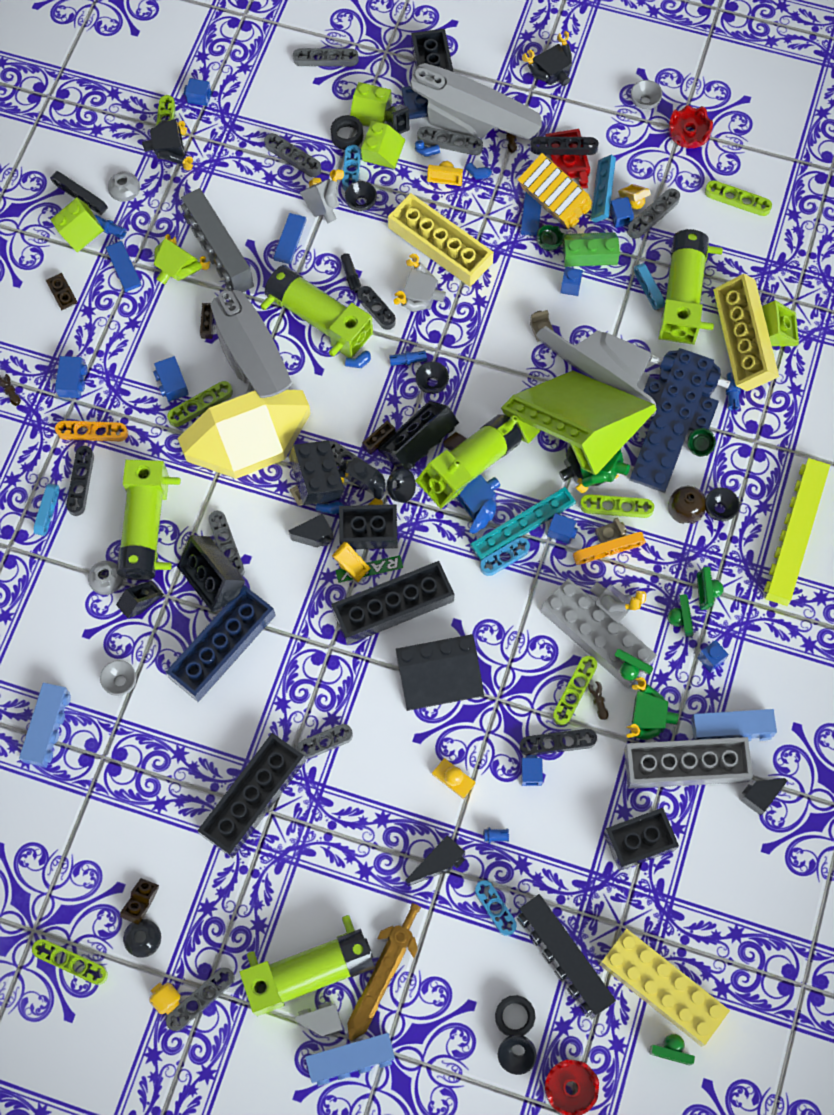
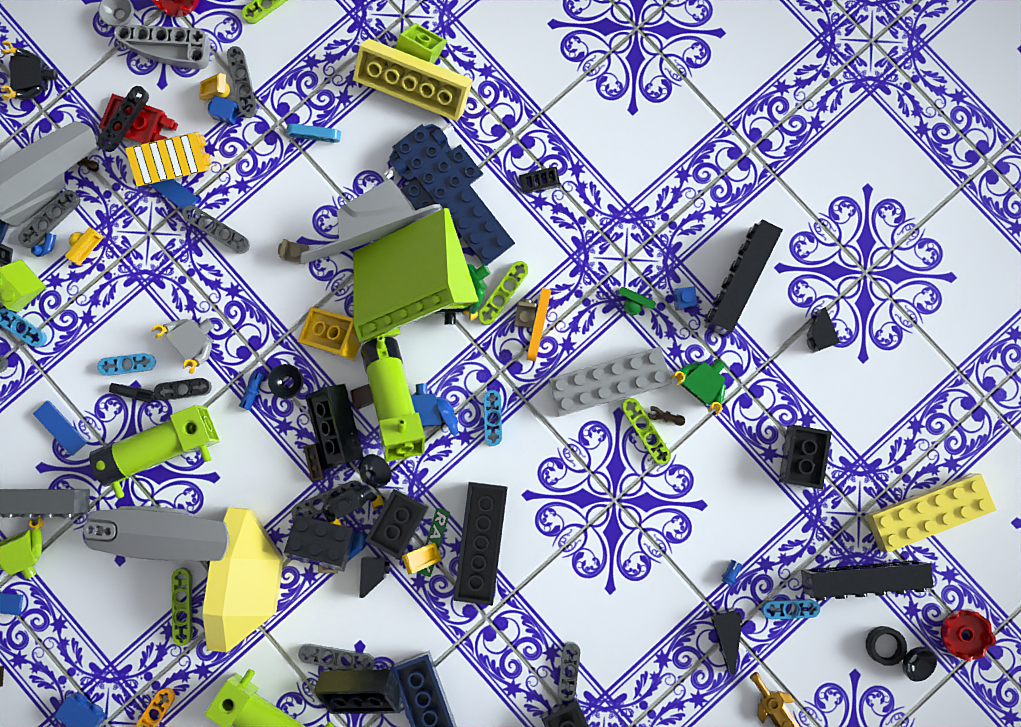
camera: 60 degrees left, 15 degrees up
(171, 378) = (140, 621): blue brick -> none
(207, 322) = (106, 559): dark brown piece -> none
(322, 195) = (35, 375): light grey torso -> none
(360, 190) = (49, 334): black piece -> none
(360, 361) = (228, 436): blue arm -> none
(371, 264) = (140, 367): none -> dark azure beam
(439, 672) = (565, 538): black slope -> none
(440, 239) = (150, 291): light yellow brick -> none
(453, 778) = (663, 579): yellow tile -> none
(478, 173) = (101, 212): blue arm -> none
(492, 389) = (330, 333): none -> yellow slope
(521, 259) = (215, 230): none -> dark grey beam
(523, 523) = (472, 384): teal plate -> none
(531, 771) = (695, 510): blue brick -> none
(549, 237) = (209, 190): dark green hair -> none
(558, 743) = (679, 471): black beam -> none
(562, 528) = (498, 353): blue brick -> none
(571, 281) = (266, 198): blue brick -> none
(591, 249) = (242, 160): bright green slope -> none
(603, 188) = (189, 111): dark azure plate -> none
(615, 602) = (596, 349): light grey torso -> none
(630, 668) = (662, 375): green tile -> none
(643, 142) = (168, 50): none -> light grey beam
(672, 1050) = (982, 536): green tile -> none
(682, 307) = (360, 122): lime piece -> none
(687, 504) = (538, 240): dark brown cylinder -> none
(688, 762) = (764, 378): light grey brick -> none
(701, 442) = (490, 184): dark green hair -> none
(708, 588) = (623, 264): green tile -> none
(727, 499) = (561, 196): black piece -> none
(733, 393) = (459, 127): blue pin -> none
(735, 724) = (752, 320): medium blue brick -> none
(742, 481) = (543, 172): none -> black slope
(764, 692) = (743, 278): none -> black brick
(797, 532) = (617, 156): neon yellow brick -> none

